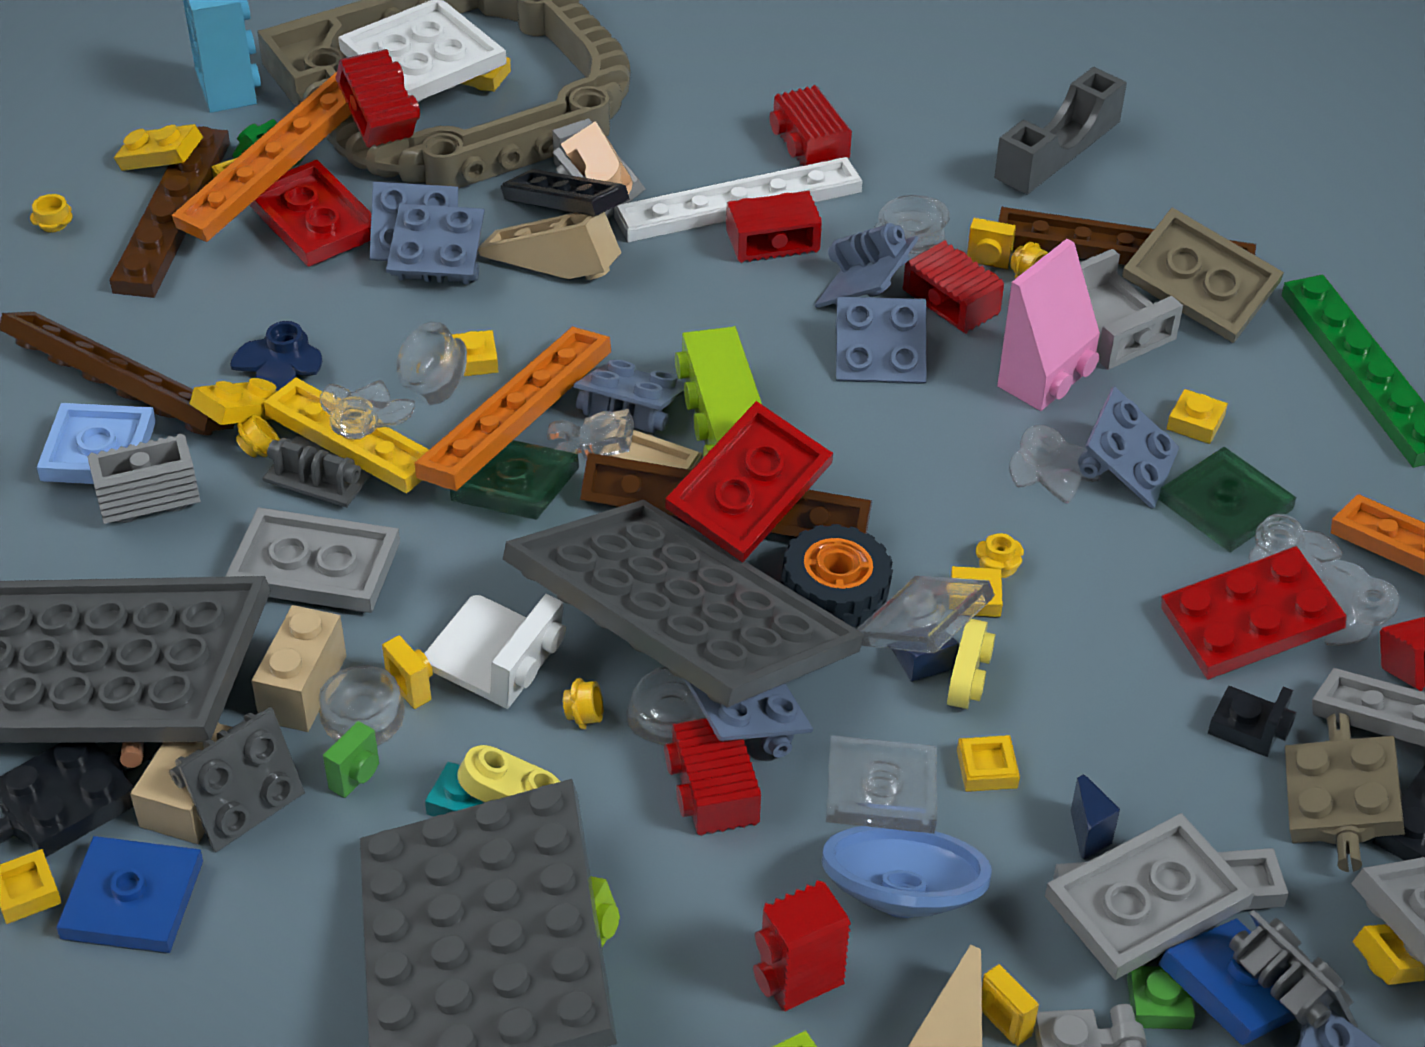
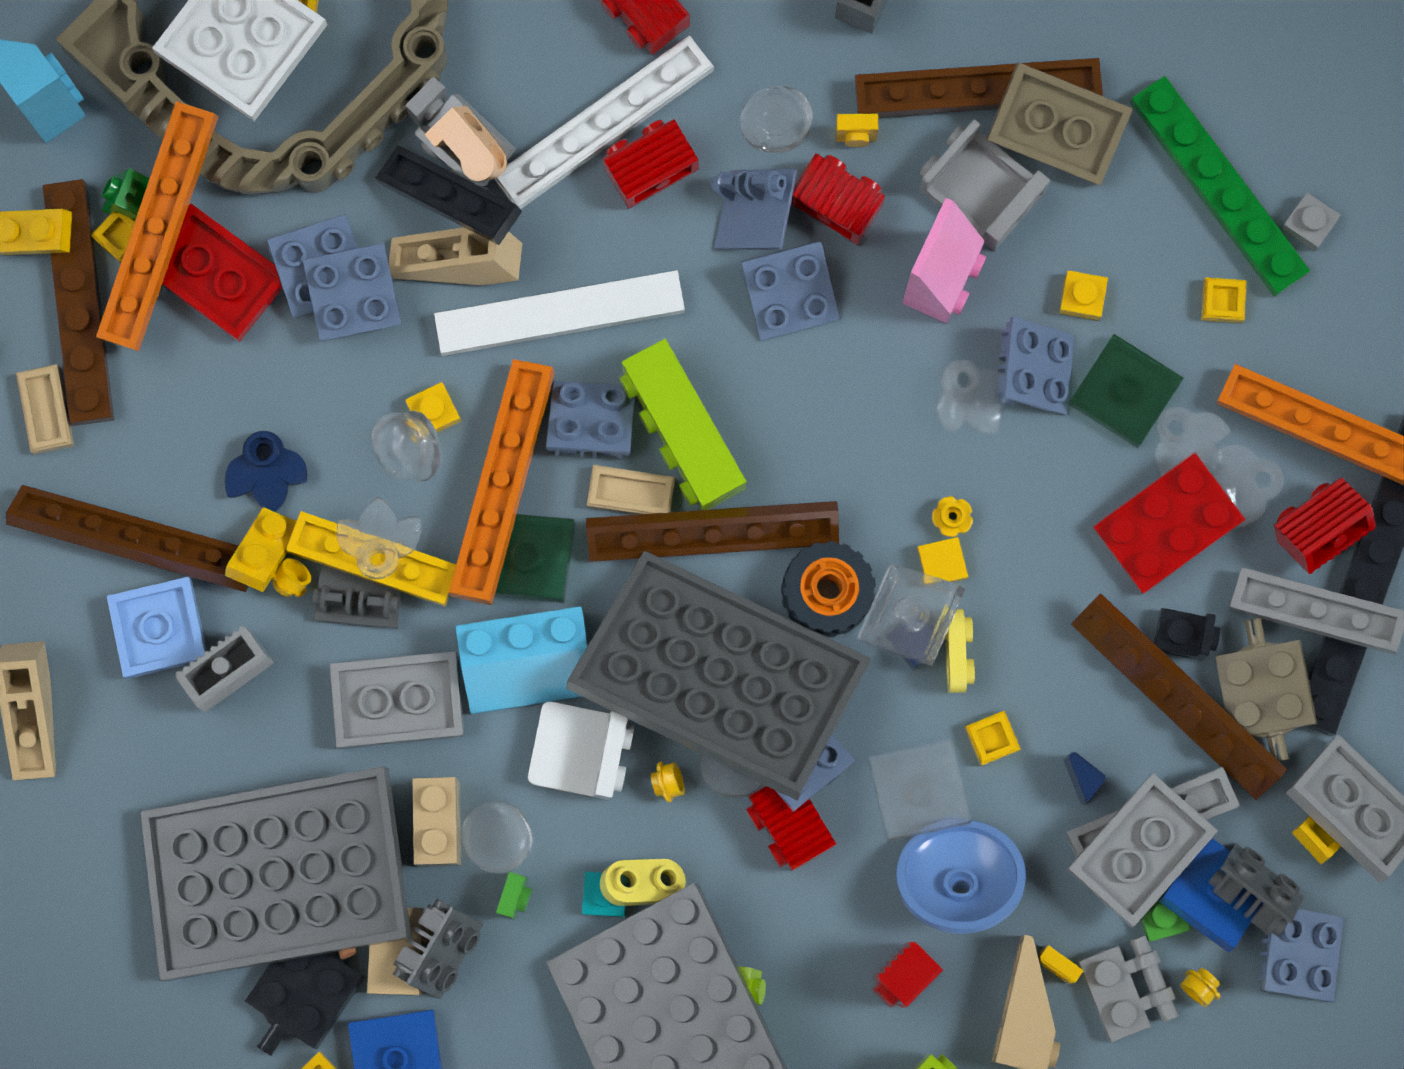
camera: 15 degrees left, 35 degrees up
(90, 272) = (45, 409): none -> tan tile
(377, 97) = (234, 141): red brick -> none
(410, 670) = (522, 794): yellow plate -> none
(456, 548) = (521, 659): none -> medium azure slope
(601, 434) = (585, 491): clear plate -> none
(631, 311) = (559, 313): none -> white tile
(749, 481) = (736, 532): red plate -> none
(1025, 257) = (896, 139): yellow plate -> none
(1235, 773) = (1178, 696): none -> reddish brown plate
(1354, 453) = (1223, 300): none -> yellow tile

